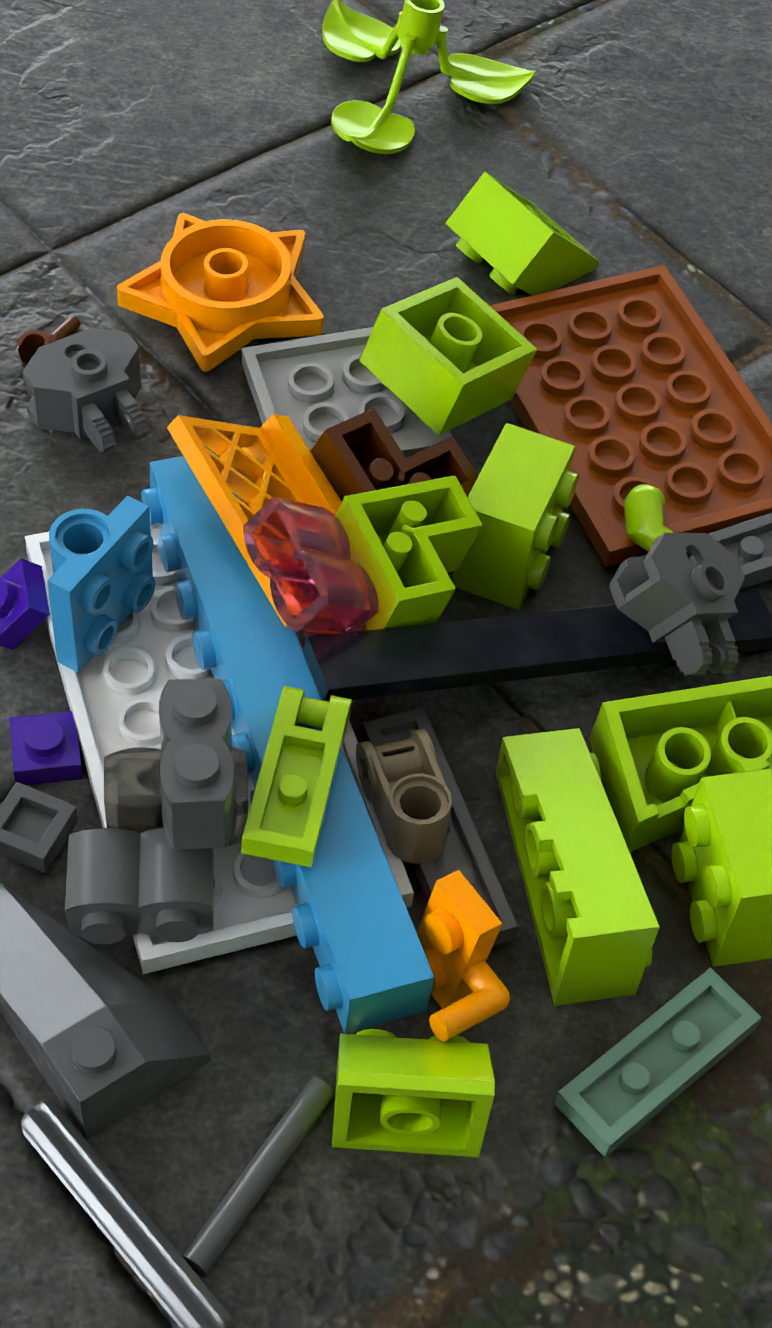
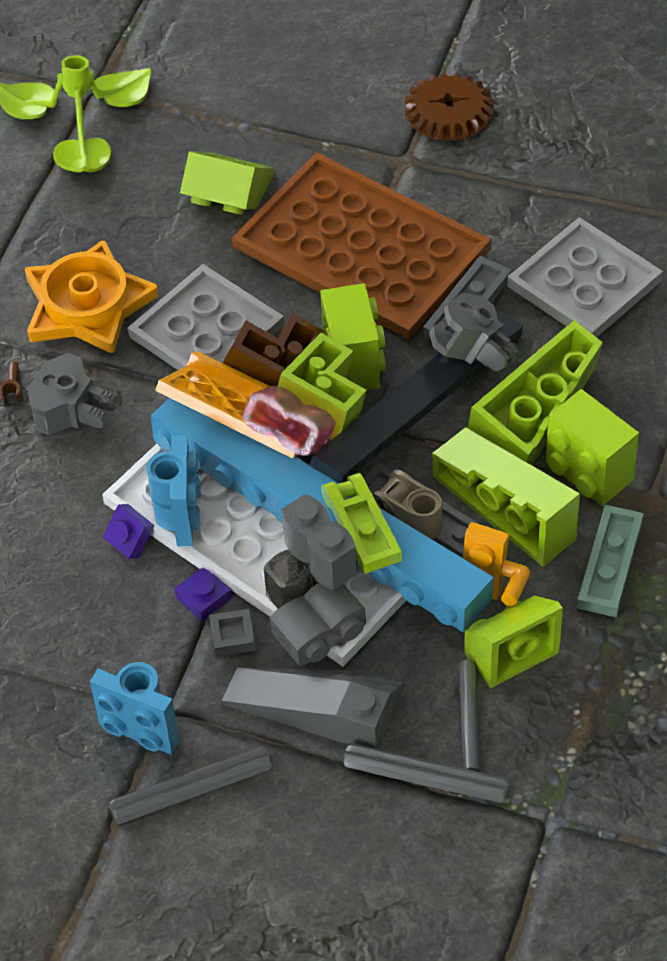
camera: 25 degrees left, 0 degrees up
(447, 355) = (252, 270): lime brick -> none
(645, 515) = (419, 305): lime arm -> none

